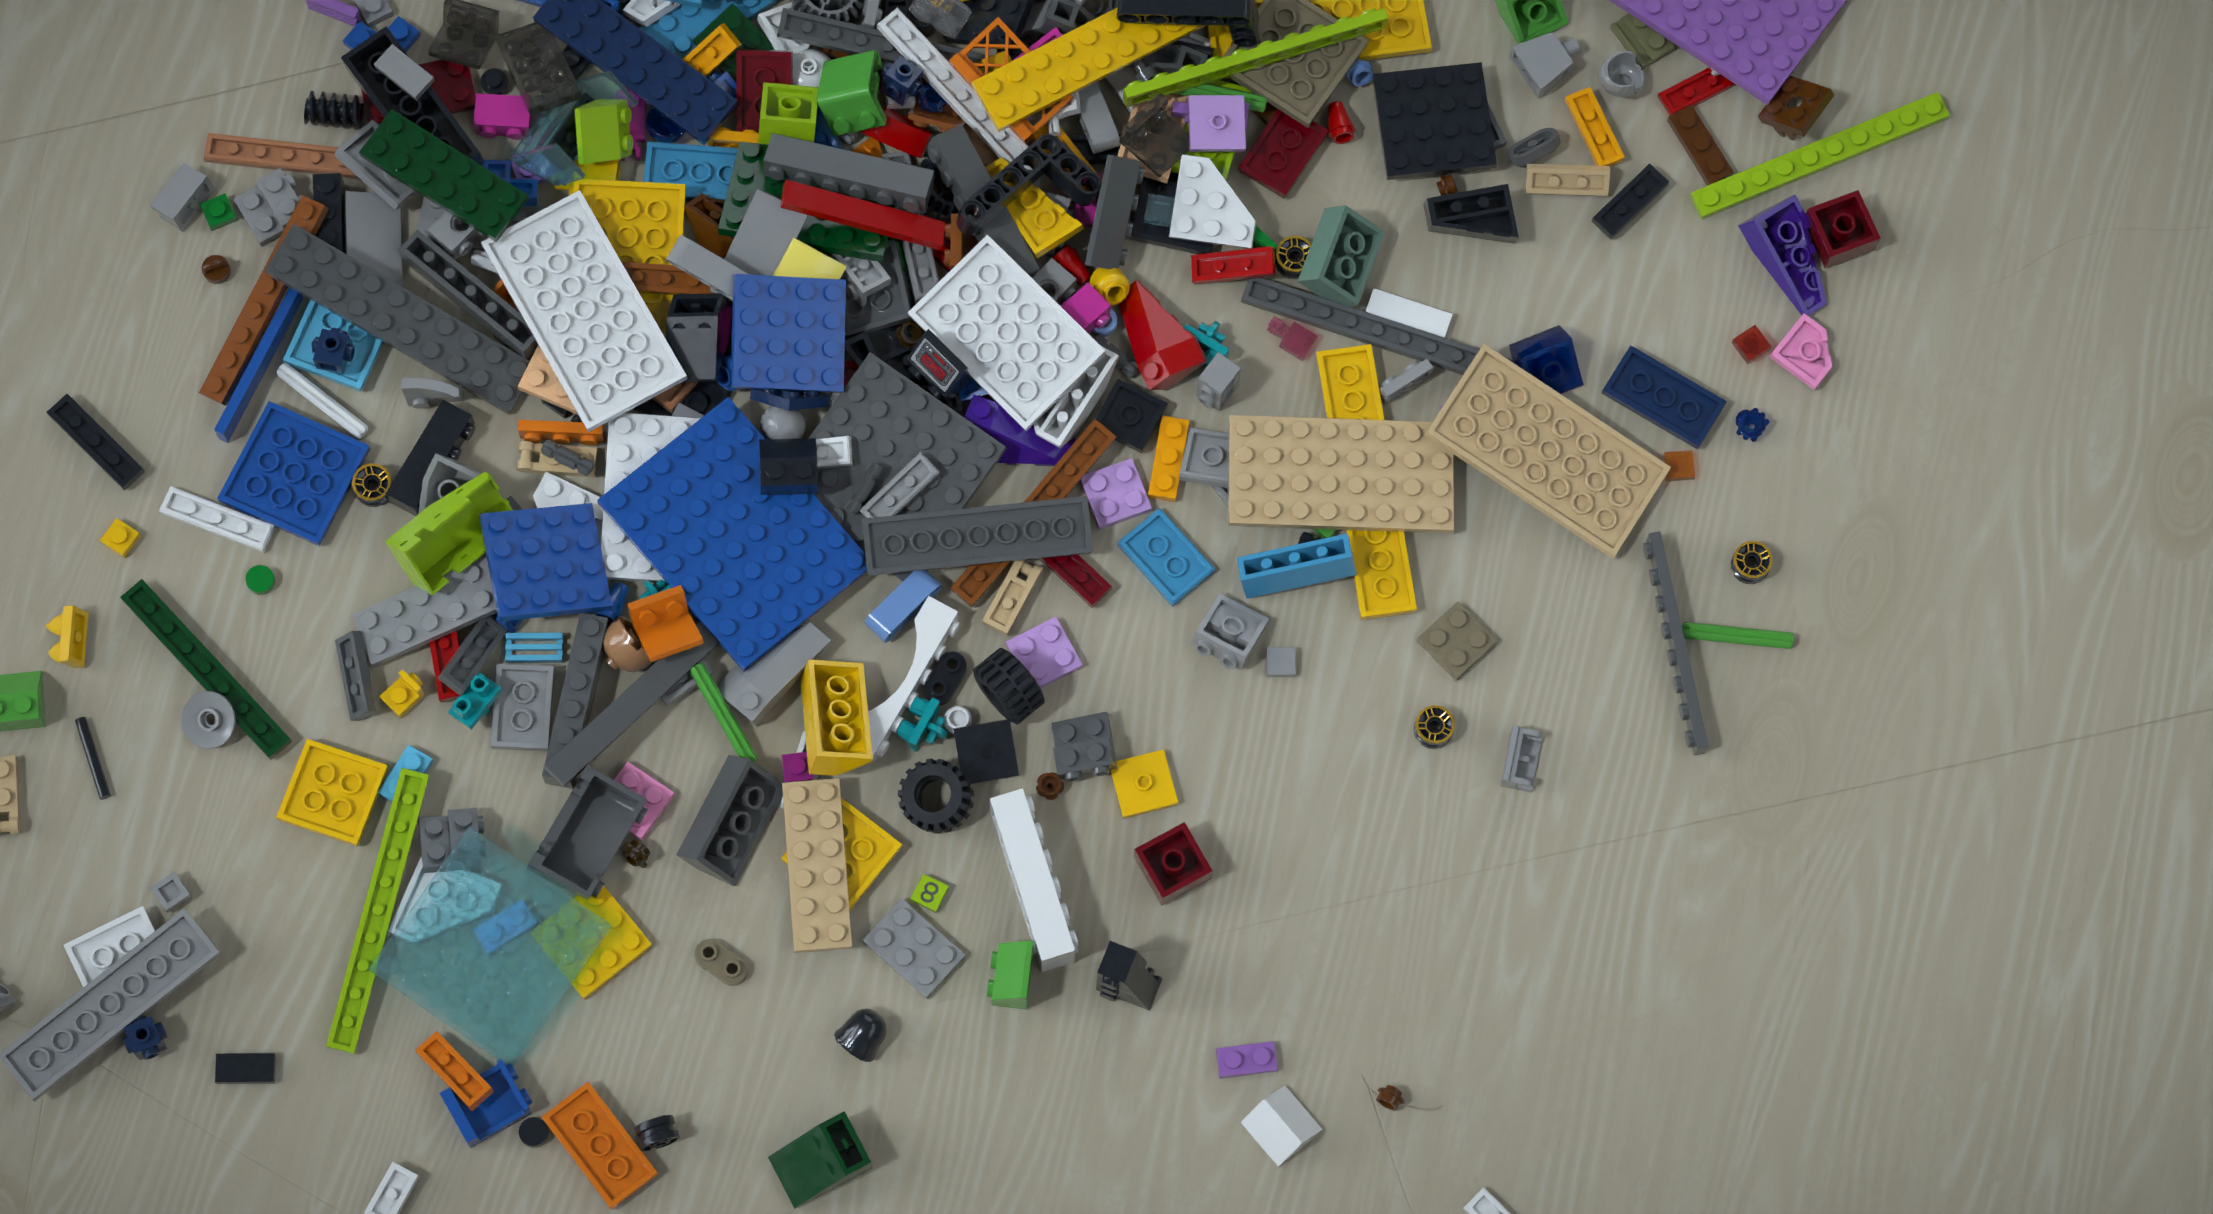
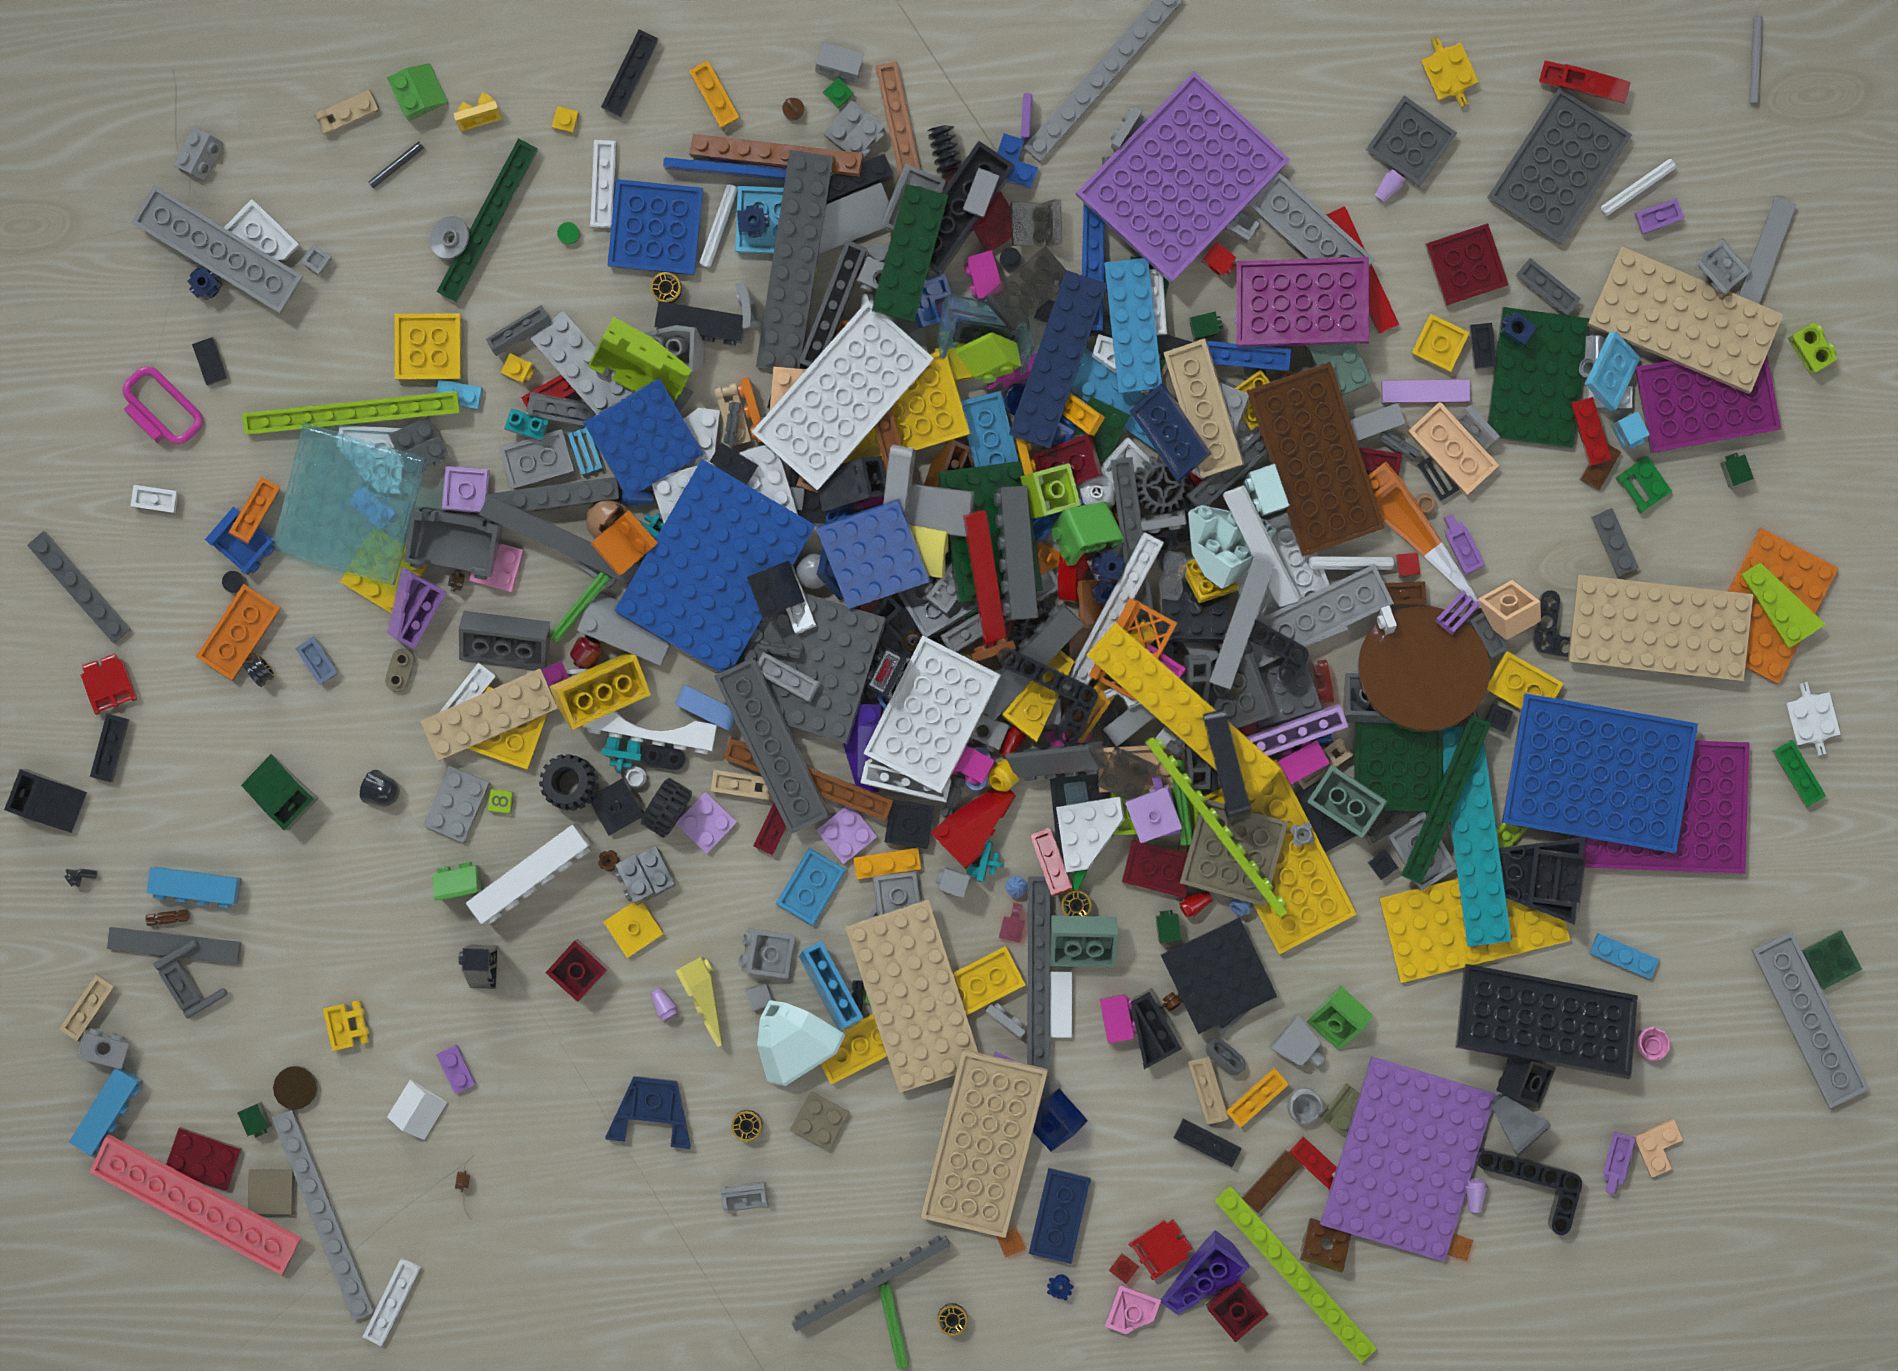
camera: 80 degrees right, 15 degrees up
(161, 352) = (714, 94): none -> light orange plate
(290, 1171) = (147, 420): none -> dark pink bar
(527, 805) = (465, 489): none -> lavender plate
(616, 465) = (734, 463): none -> black plate
(649, 912) = (413, 607): none -> medium lavender wedge
(671, 1059) = (317, 660): none -> sand blue plate
(774, 878) = (472, 686): none -> white plate
(782, 725) = (586, 652): none -> dark red head
(1144, 1186) = (339, 1026): none -> yellow plate
(1244, 724) = (699, 983): none -> light yellow wedge
(1248, 318) = (1016, 886): none -> medium blue plate
(1251, 778) = (663, 1005): none -> lavender cone
(1350, 630) = (793, 1042): none -> light aqua brick
(1356, 161) = (1167, 926): none -> dark green brick
(1367, 830) = (654, 1102): none -> dark blue wing
(1447, 253) = (1117, 1018): none -> dark pink brick
(1740, 293) = (1161, 1247): none -> red plate

